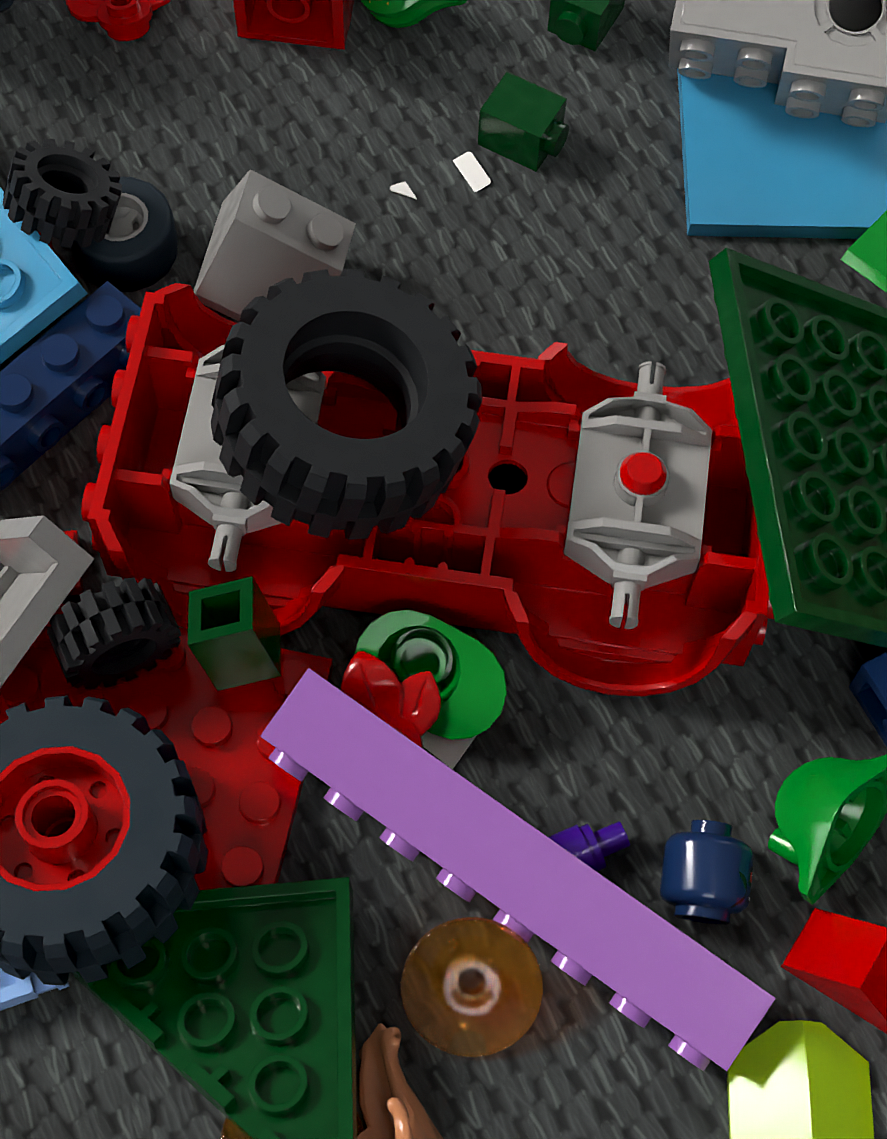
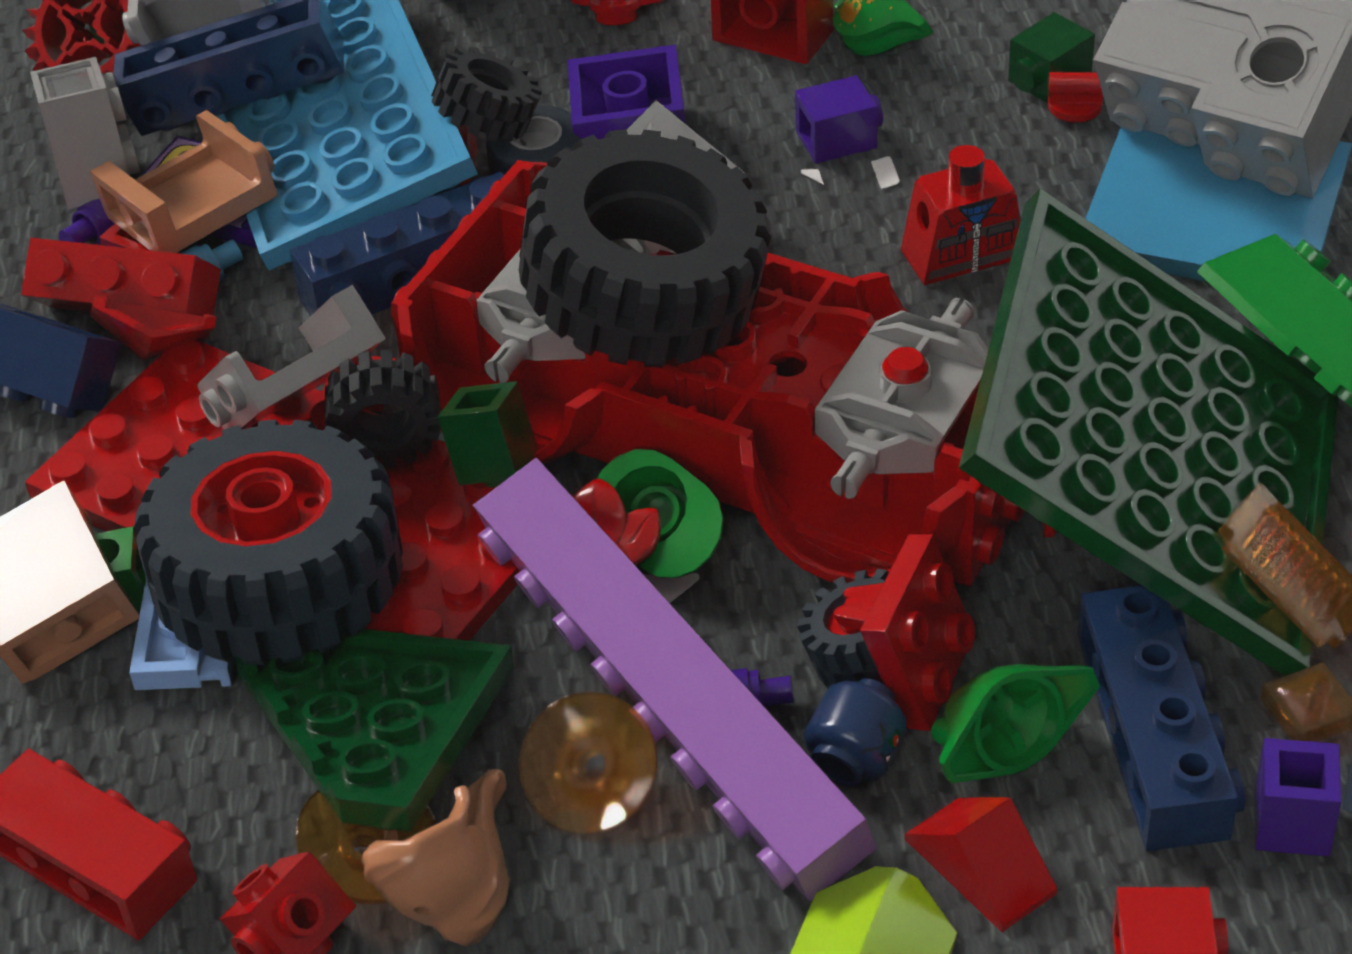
camera: 25 degrees right, 20 degrees down
(197, 149) = (618, 87): none -> dark purple slope
(409, 122) = (837, 119): none -> dark purple brick
(523, 122) = (938, 126): dark green brick -> none
(583, 232) = (961, 218): none -> red torso
(627, 44) = (1074, 96): none -> red plate
(695, 752) = (894, 629): none -> red plate

